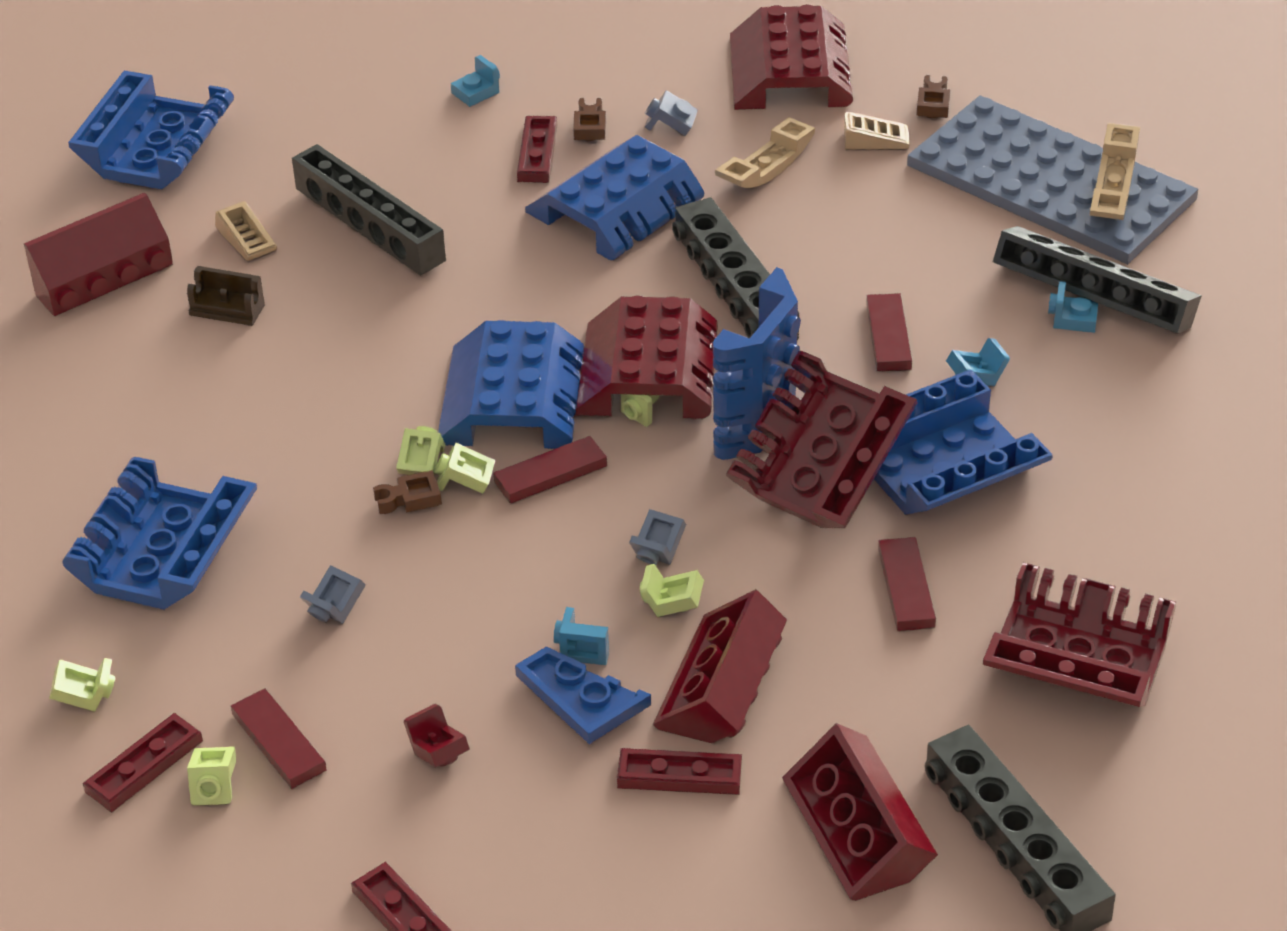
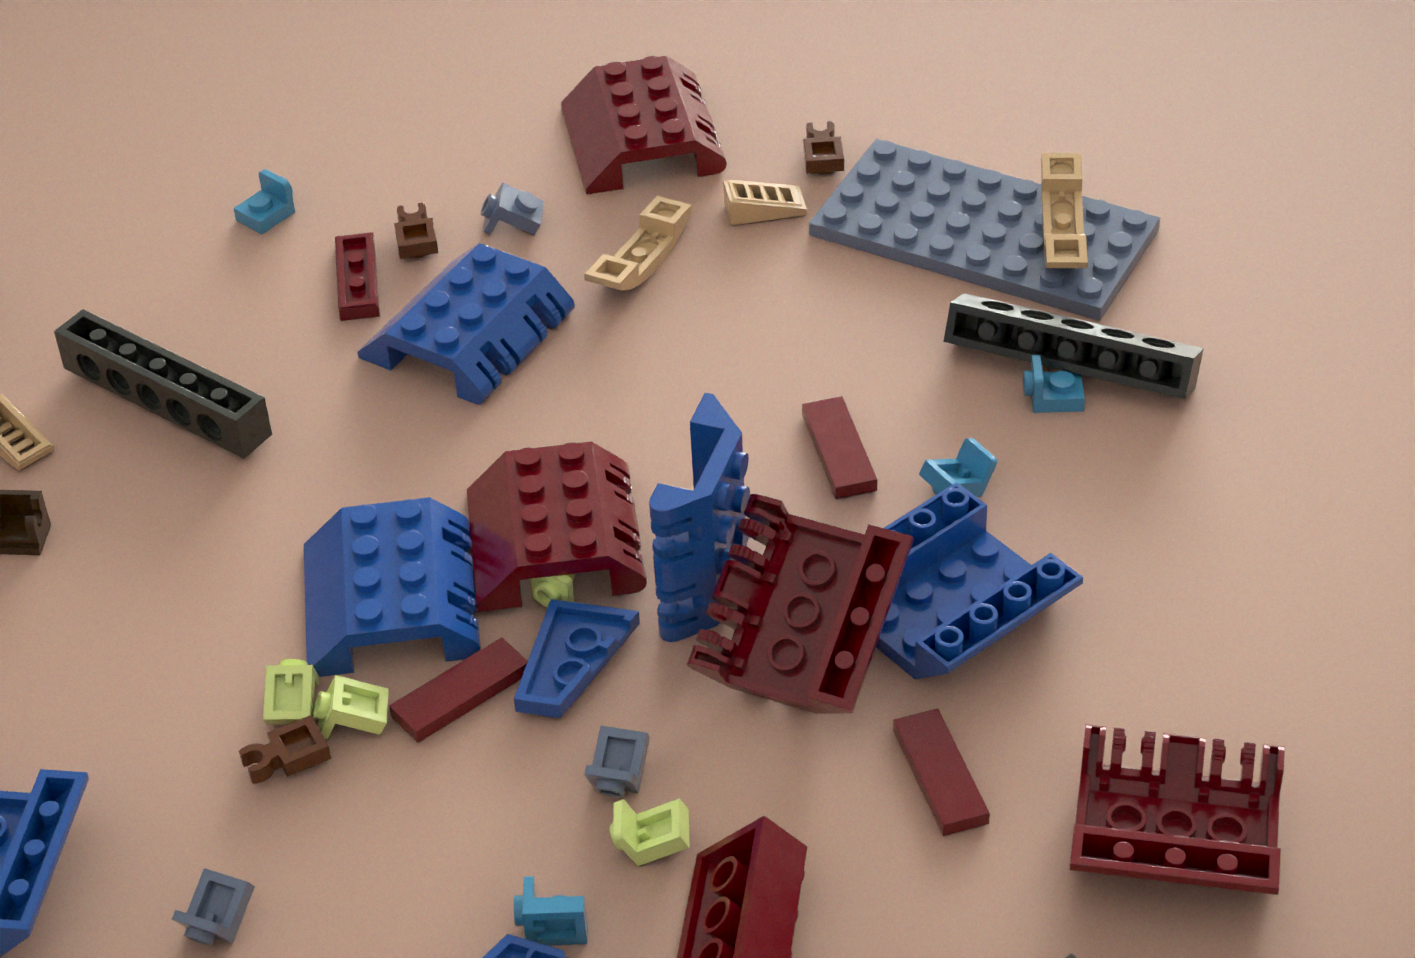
camera: 10 degrees left, 0 degrees up
(639, 455) = (569, 654): none -> blue wing
(722, 258) = (625, 390): pearl dark grey brick -> none

